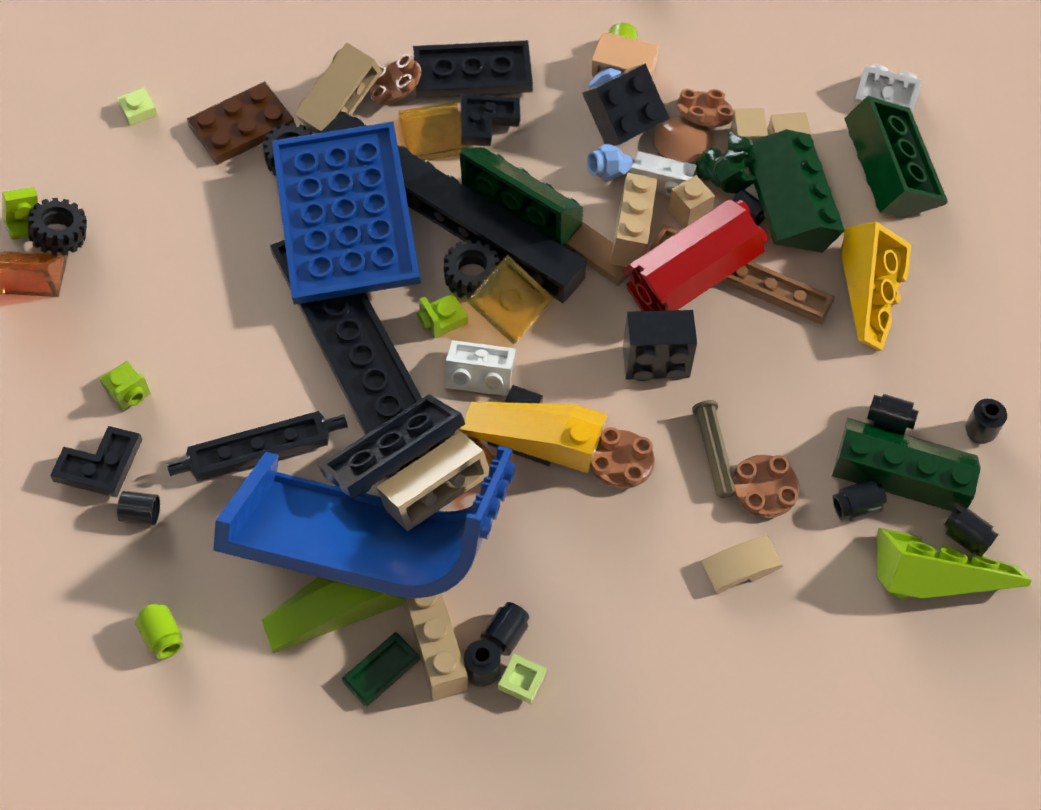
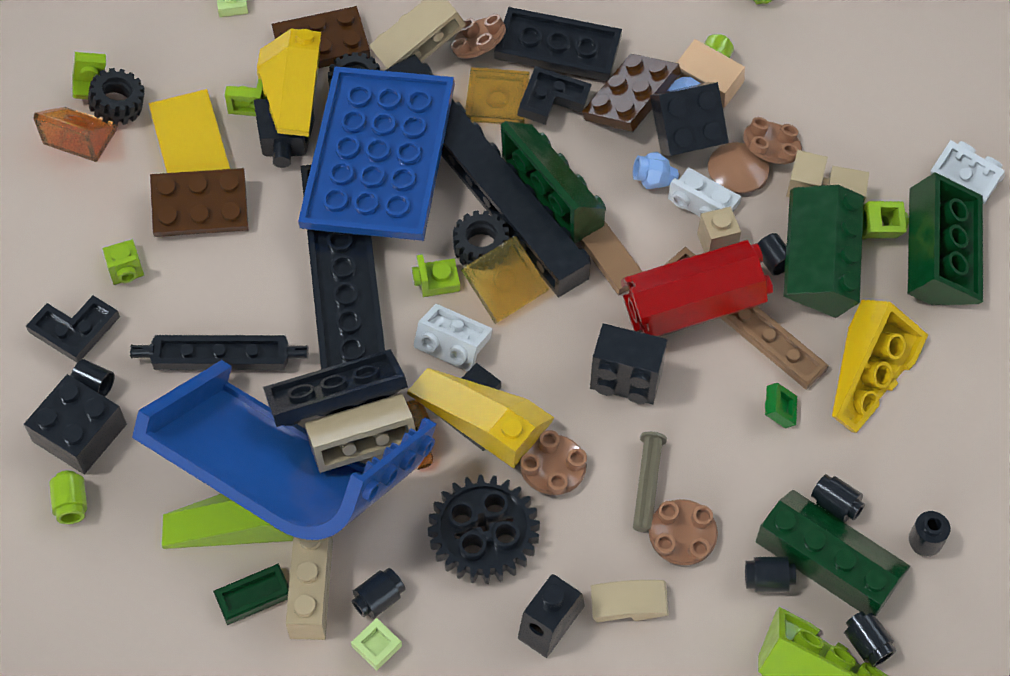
camera: 20 degrees right, 0 degrees up
(139, 556) = (75, 424): none -> black brick
(151, 255) = (188, 133): none -> yellow tile
(181, 307) = (199, 202): none -> reddish brown plate
(192, 196) = (241, 99): none -> lime bracket
(231, 162) = (289, 79): none -> yellow wedge
(237, 214) = (278, 145): none -> black torso
(482, 662) = (343, 617): black brick -> none
(557, 96) = (626, 95): none -> plate
(601, 559) = (494, 555): none -> black gear
(633, 219) = (653, 233): tan brick -> none
(677, 595) = (553, 611): none -> black torso
(727, 169) = (767, 206): dark green animal -> none
(808, 344) = (781, 405): none -> green plate
(835, 151) = (892, 215): none -> lime brick

